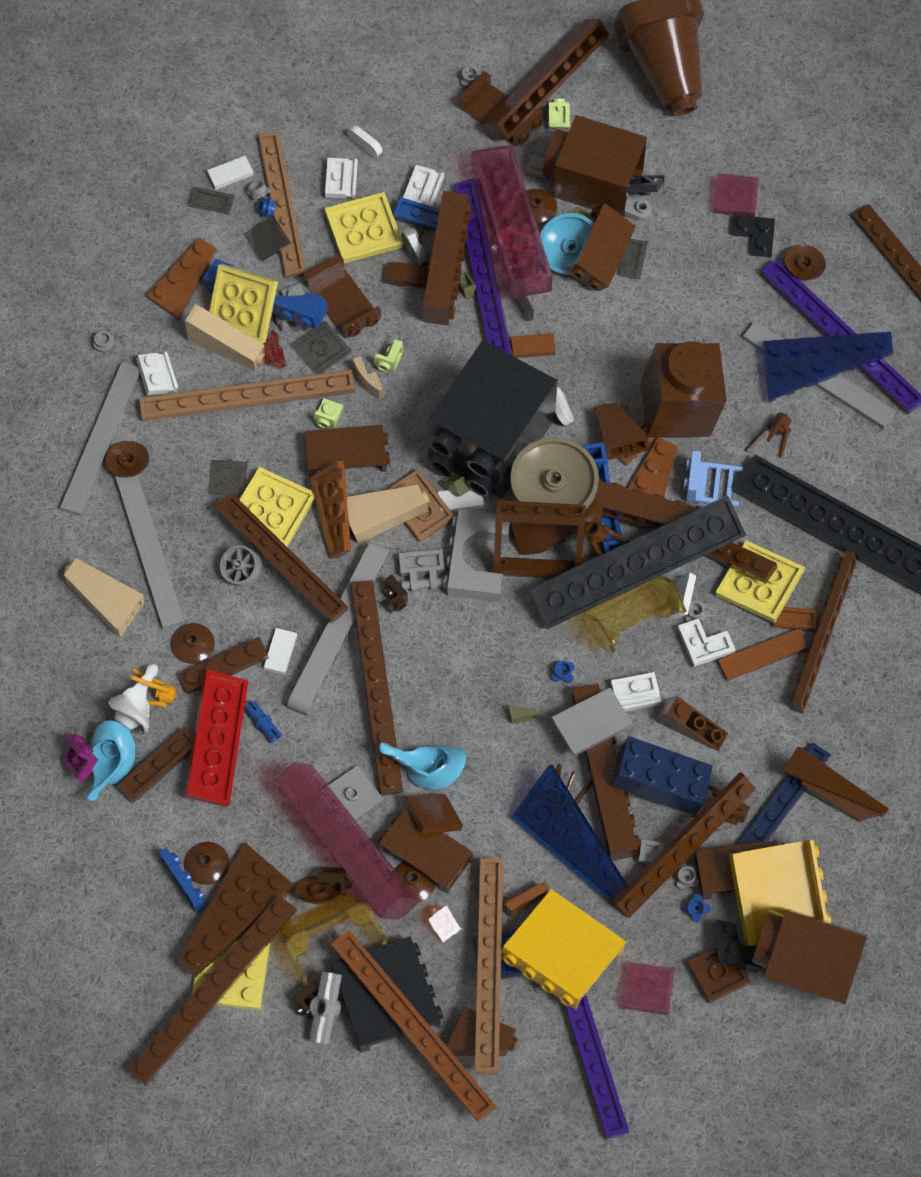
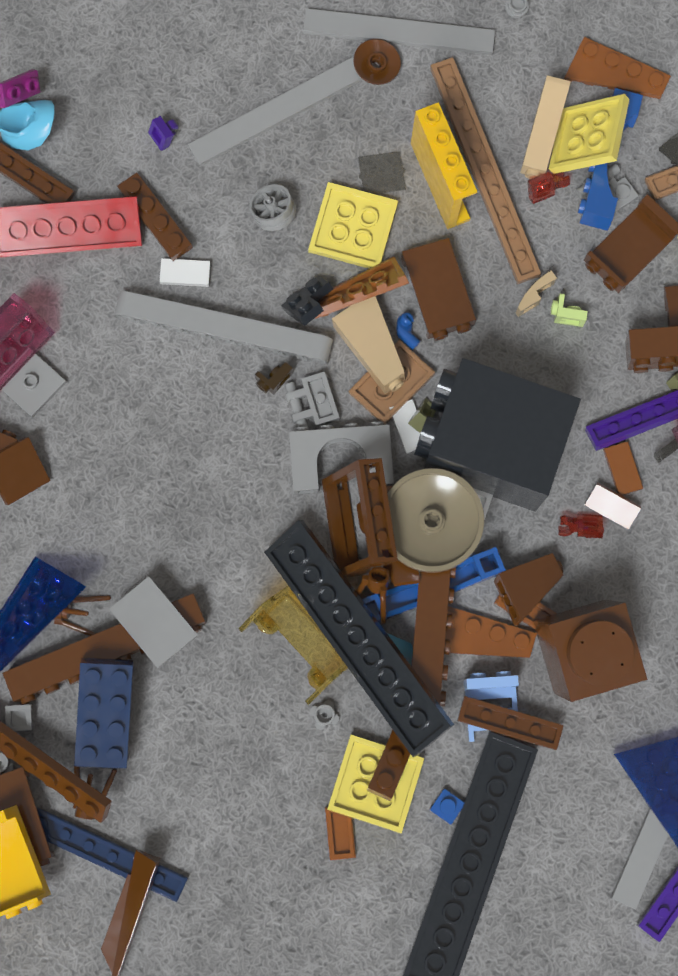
camera: 75 degrees right, 15 degrees up
(104, 595) = (209, 76): tan slope -> none
(132, 705) = (78, 130): white hat -> none
(147, 645) = (162, 132): none -> dark purple tile
(157, 373) = (489, 69): white plate -> none
(165, 692) = (110, 163): light orange plant -> none
(192, 652) = (181, 190): reddish brown dish -> none
(245, 416) = (442, 164): none -> yellow panel
(263, 721) = (98, 272): blue pin -> none
(281, 558) = (286, 245): reddish brown plate -> none
(321, 348) = (563, 237): clear smoke tile -> none
(328, 414) = (482, 261): yellowish green bracket -> none
(334, 557) = (304, 304): none -> black plate
(373, 486) = (404, 330): none -> blue arm
(376, 685) = (157, 380): reddish brown plate -> none
(429, 766) = (76, 452): medium azure hat -> none
(520, 714) = (158, 540): olive piece -> none
(562, 408) = (550, 513): white tile -> none
(563, 358) = (613, 505): none -> tile
(568, 667) = (226, 585): blue plate -> none
(575, 381) = (584, 524): none -> clear red plate
(637, 691) = (209, 666): white plate -> none
(685, 587) = (340, 697): white tile -> none
(691, 723) = (182, 735): reddish brown slope -> none
(703, 648) = (278, 732): white plate -> none
(730, 466) = (510, 723): none -> reddish brown plate
(762, 654) = (286, 802): dark orange tile -> none
(778, 425) = (584, 772): reddish brown plant -> none
(788, 533) = (447, 806): none -> blue plate
(826, 625) = (338, 870): reddish brown plate -> none

